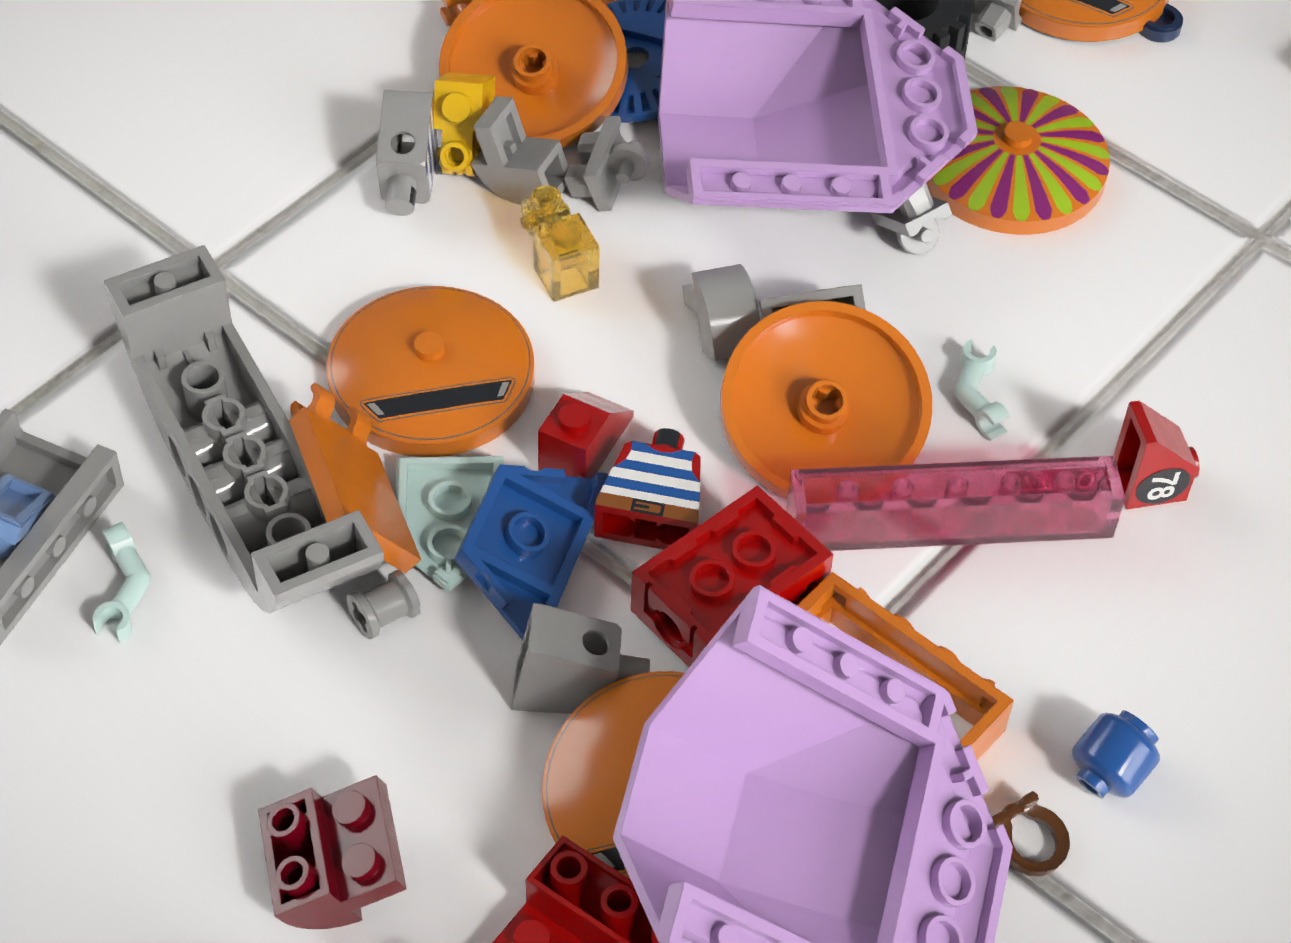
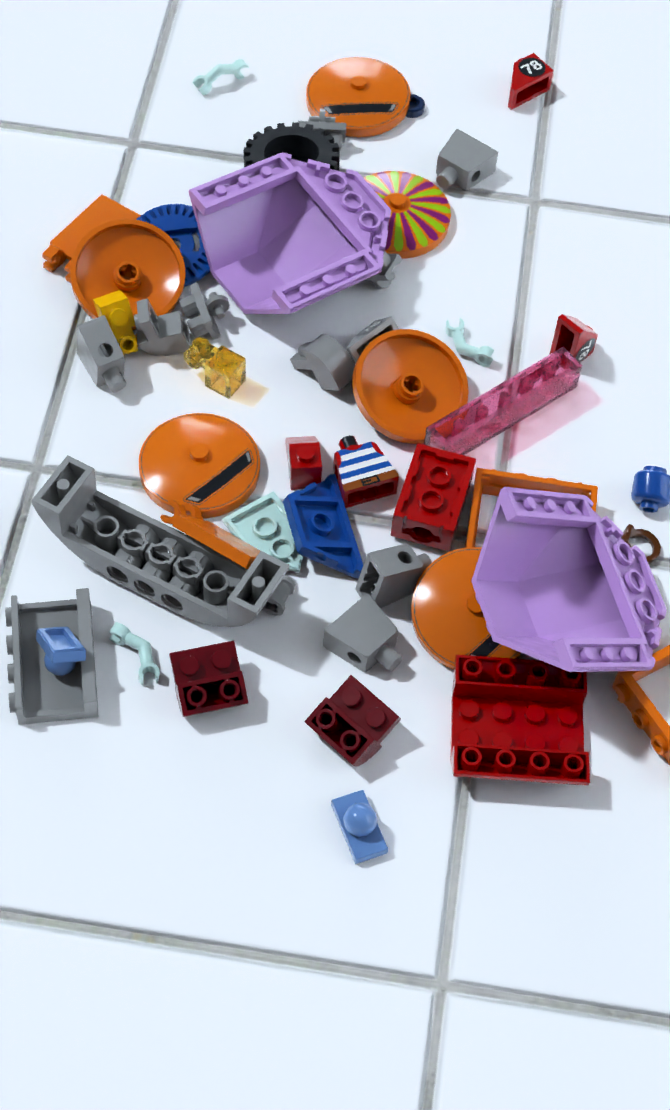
camera: 35 degrees left, 5 degrees up
(176, 670) = (208, 678): none -> dark red brick
(459, 735) = (364, 636): none -> light grey torso
(1177, 129) = (464, 161): none -> light grey torso

